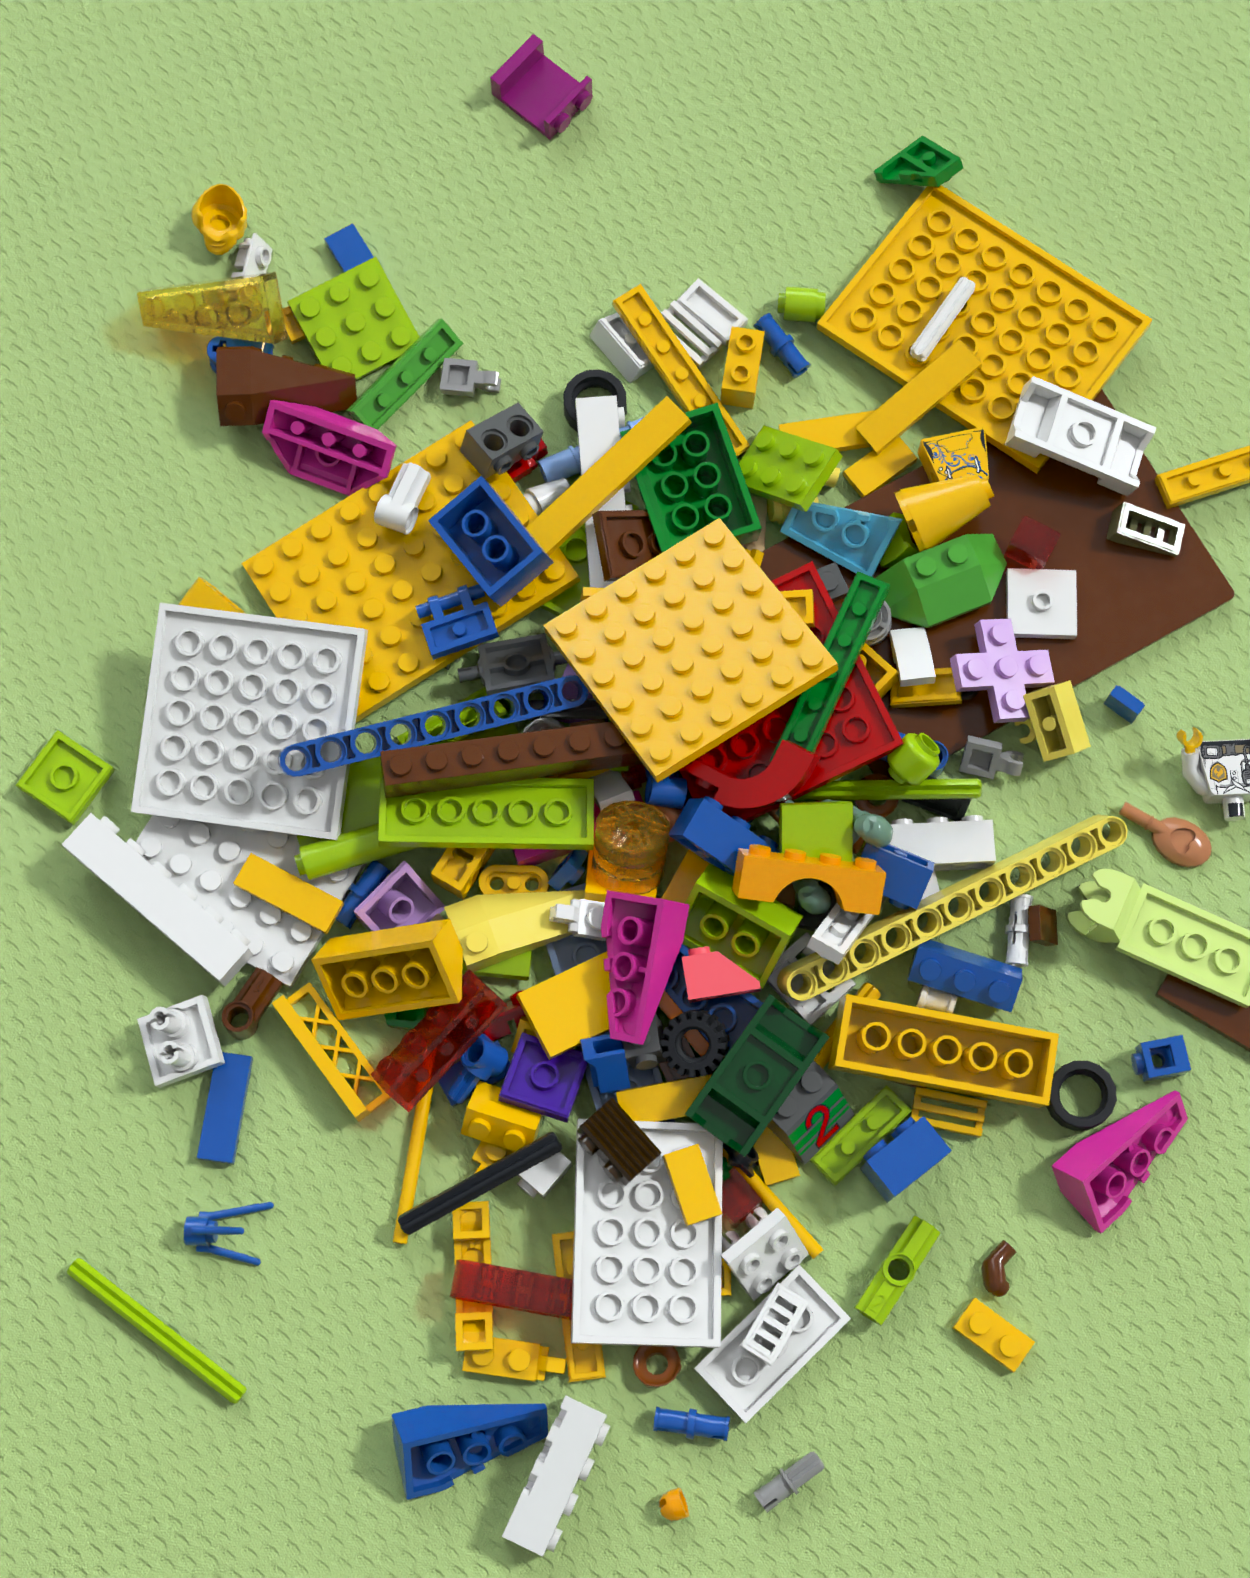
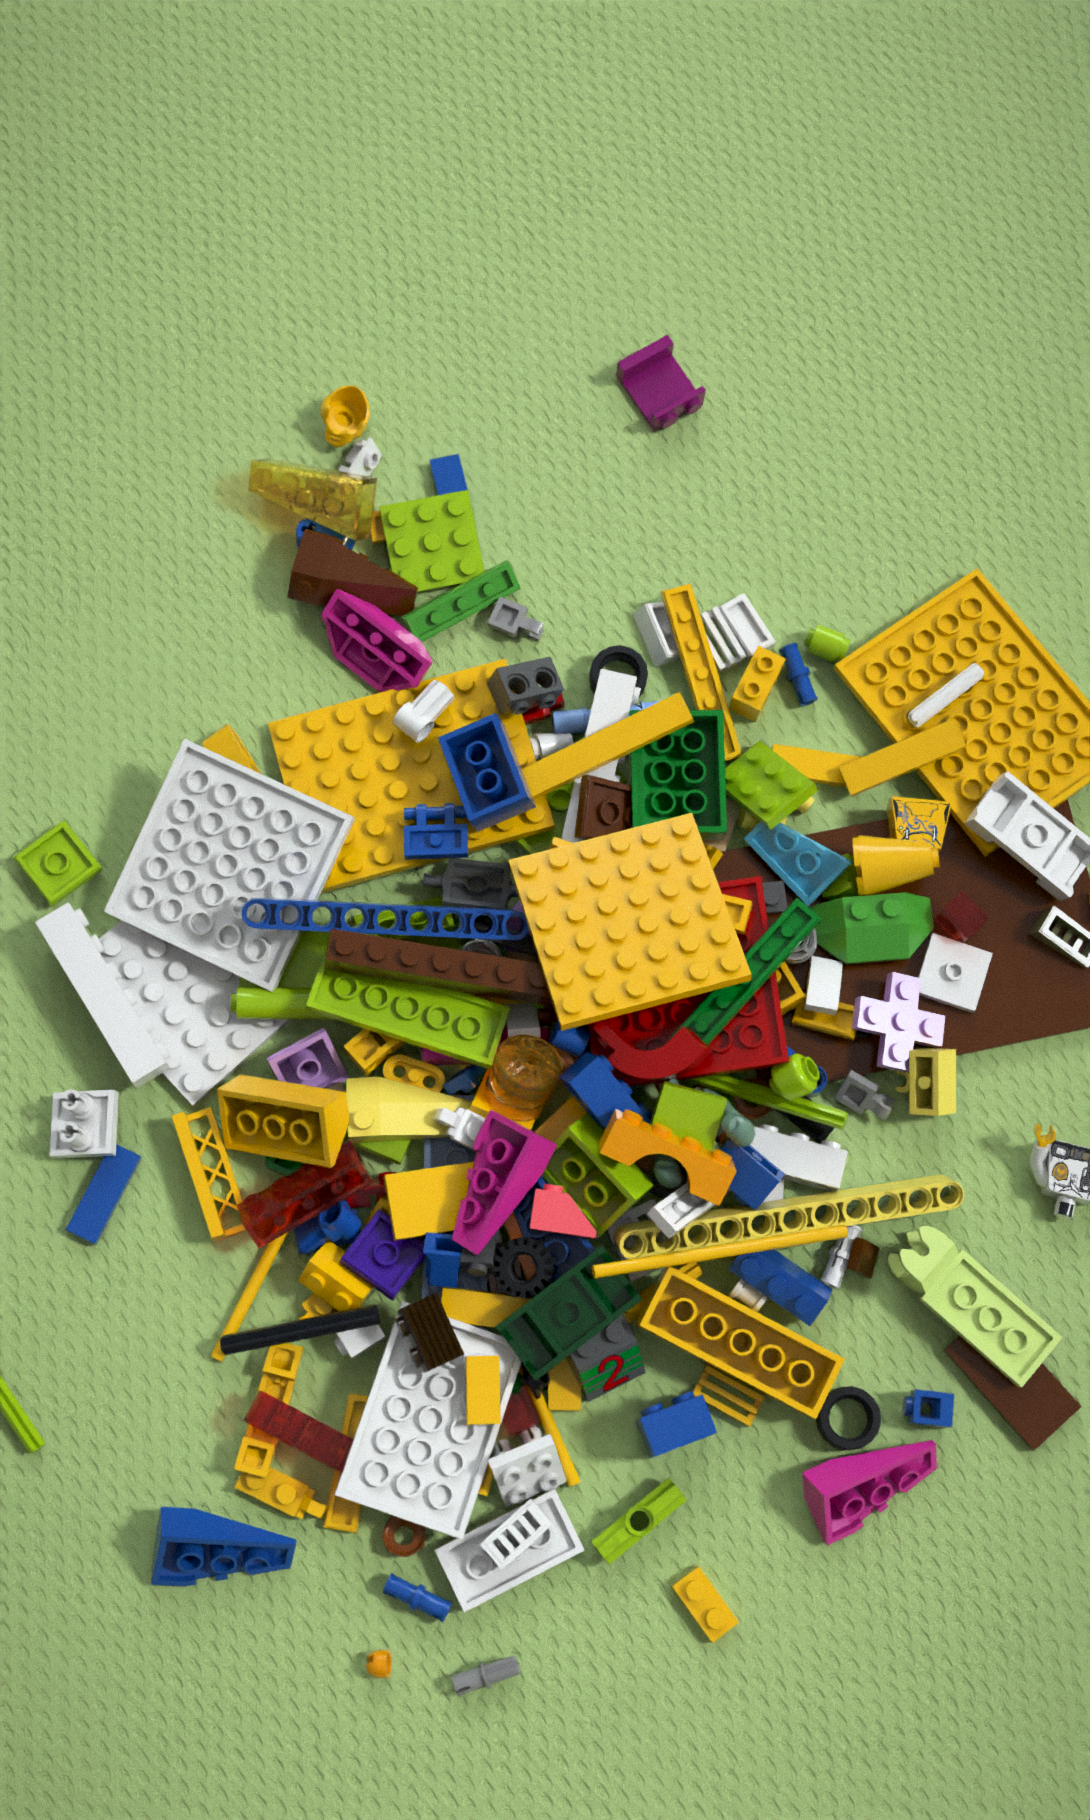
camera: 10 degrees right, 0 degrees up
(202, 1231) = (50, 1295): blue plant -> none
(252, 1000) = (156, 1107): reddish brown piece -> none
(288, 893) = (216, 1024): yellow tile -> none
(367, 883) = (285, 1038): blue pin -> none
(555, 1477) = (285, 1605): white wedge -> none
(860, 1135) = (644, 1392): lime tile -> none
(876, 470) = (847, 810): yellow tile -> none
(892, 963) = (719, 1251): none -> yellow piece
(920, 165) = (970, 551): green wing -> none
(993, 1269) = (723, 1548): reddish brown arm -> none
(1124, 704) = (997, 1084): blue tile -> none
(1173, 837) = (1003, 1215): nougat piece -> none

